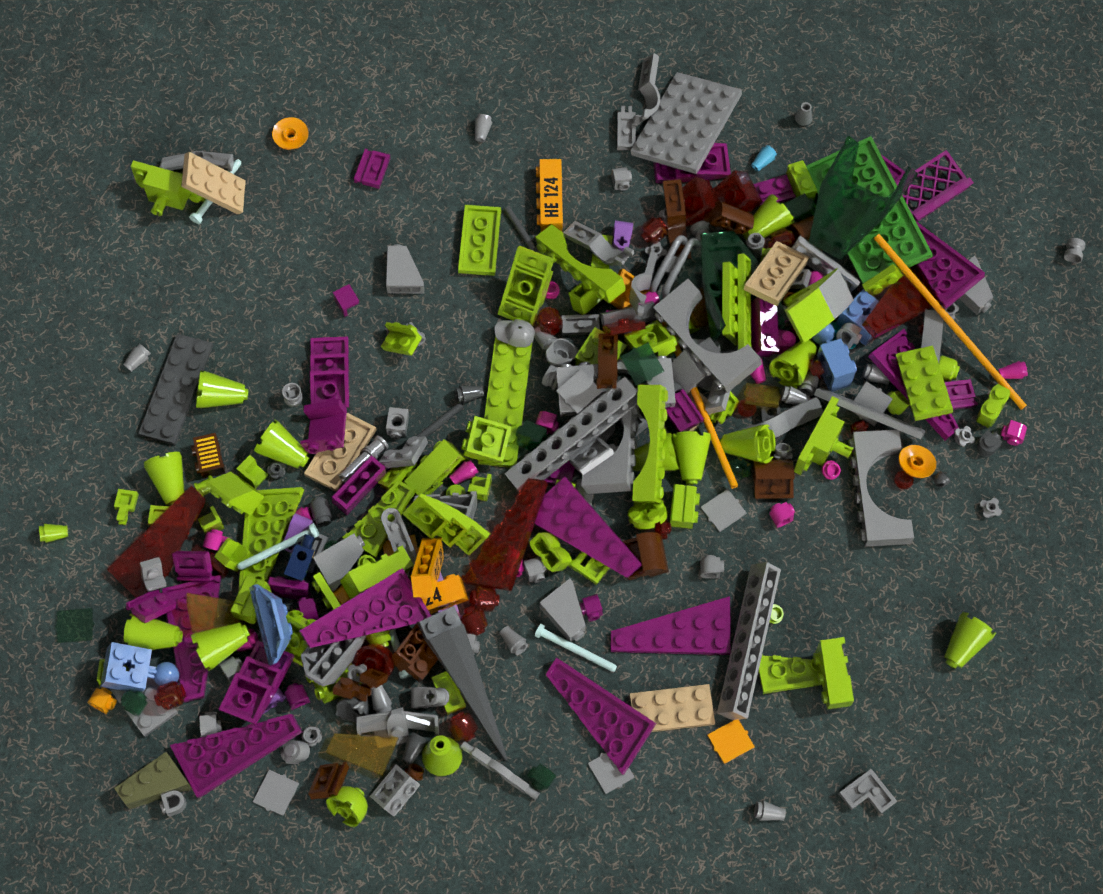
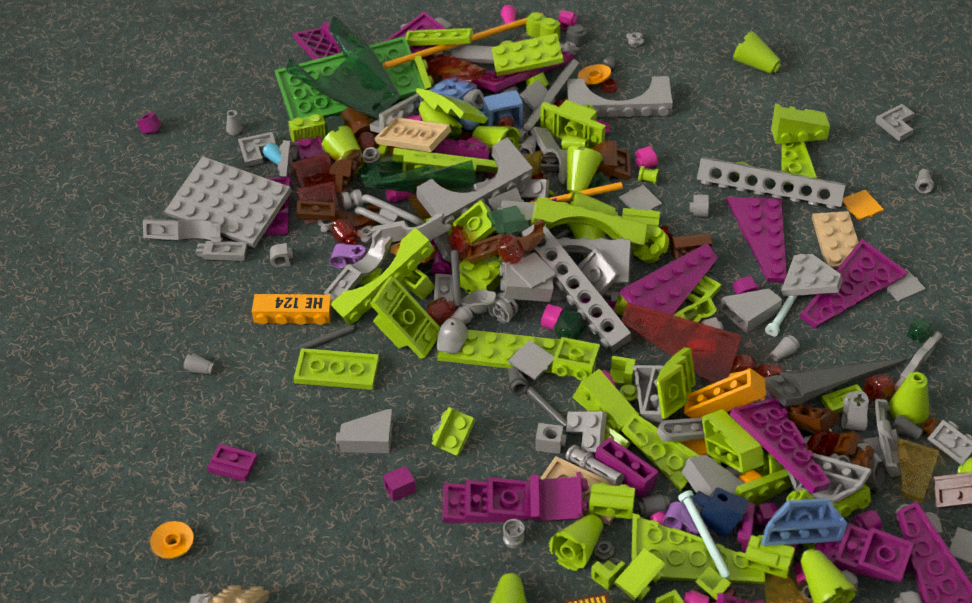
camera: 85 degrees left, 20 degrees down
(317, 471) = (611, 500): none -> lime brick
(489, 403) = (531, 360): none -> light grey piece
(580, 328) = (455, 278): none -> dark grey bar
(591, 362) = (510, 249): none -> clear red head
(606, 669) = (810, 276): none -> light grey plate
(756, 165) = (288, 152): none -> light grey plate
(758, 516) = (648, 175): none -> lime bush
(775, 136) = (252, 147): none -> light grey plate
(797, 42) = (149, 123): none -> magenta plate
(799, 440) = (571, 140): none -> lime cone
(939, 289) = (439, 37): none -> lime tile

